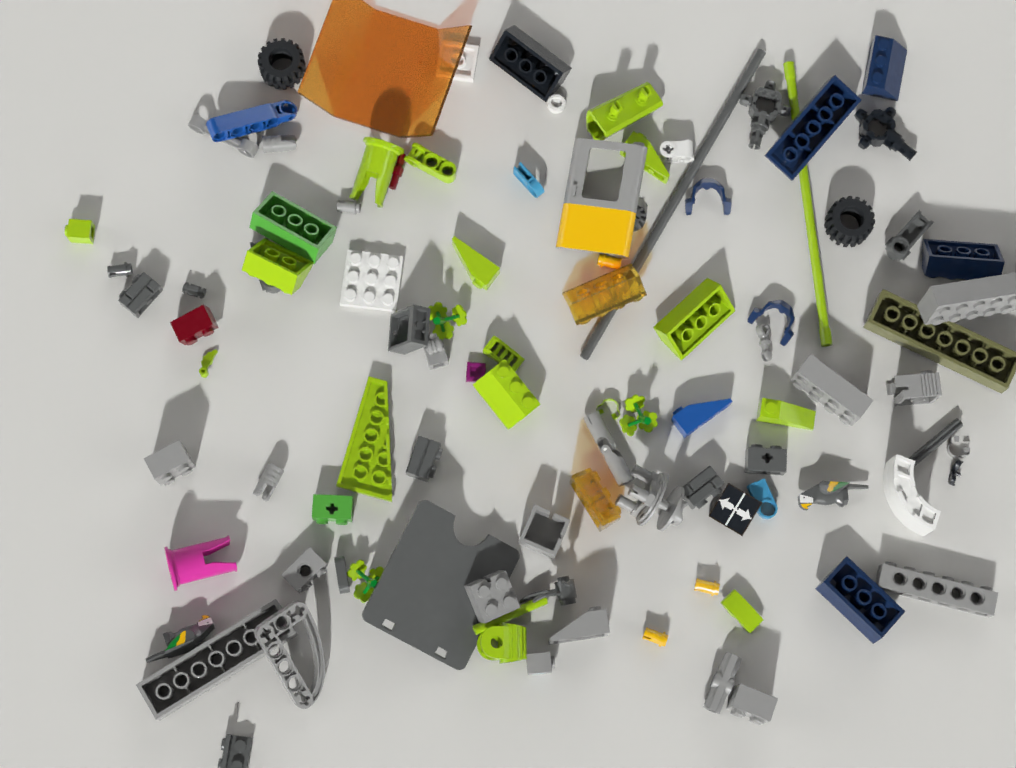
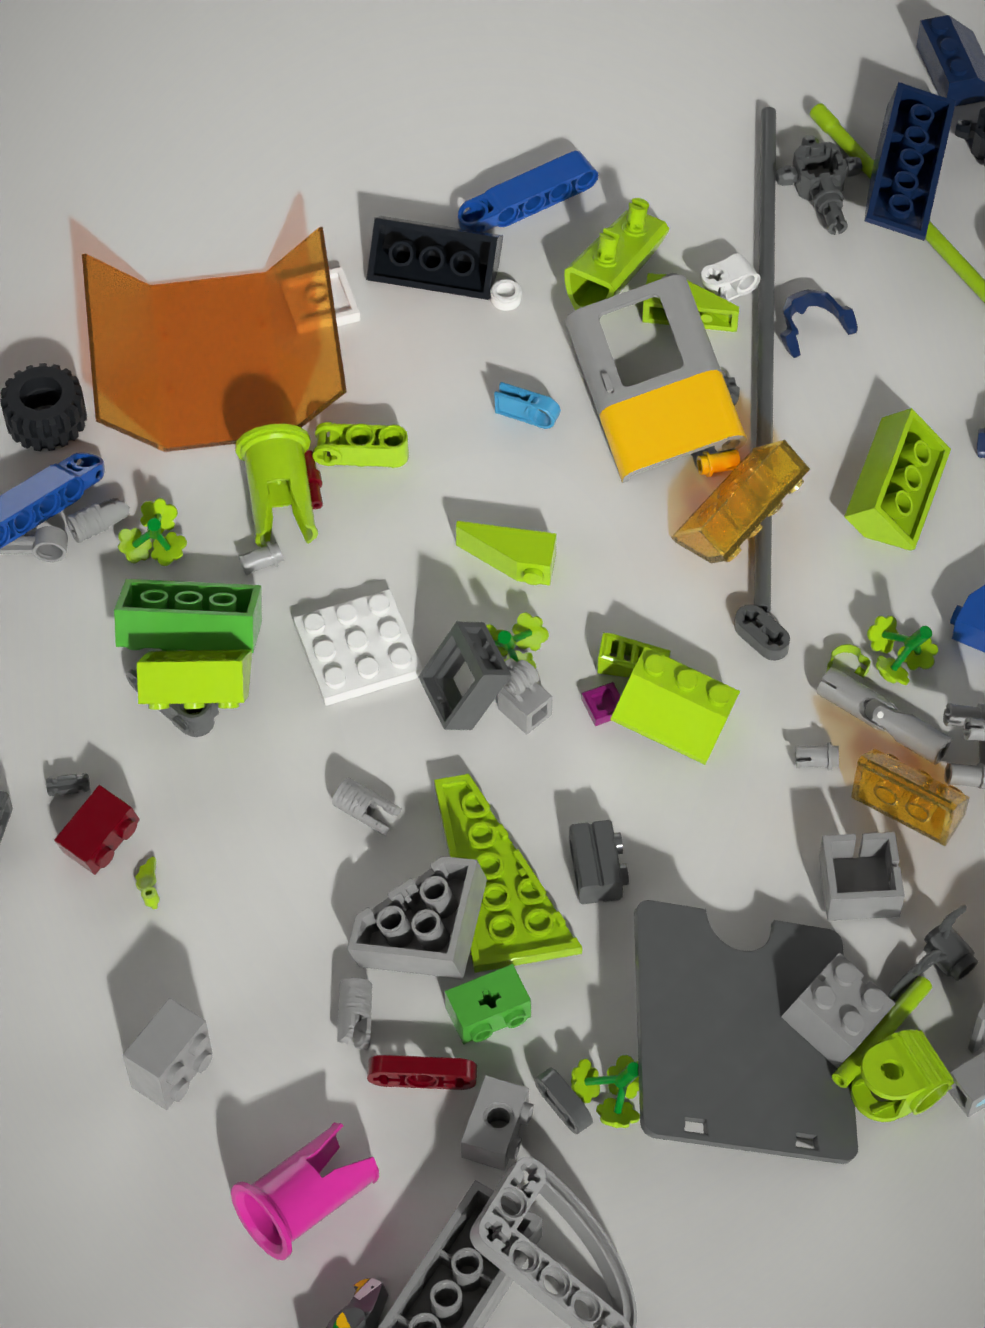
camera: 20 degrees left, 20 degrees down
(284, 527) = (422, 1072): none -> dark red beam
(291, 168) = (157, 518): none -> lime plant
(321, 454) = (424, 922): none -> light grey brick
(327, 371) = (361, 804): none -> light grey hinge
(563, 454) = (817, 756): none -> light grey pin
(580, 370) = (758, 634): none -> dark grey beam
(600, 45) = (528, 193): none -> blue piece

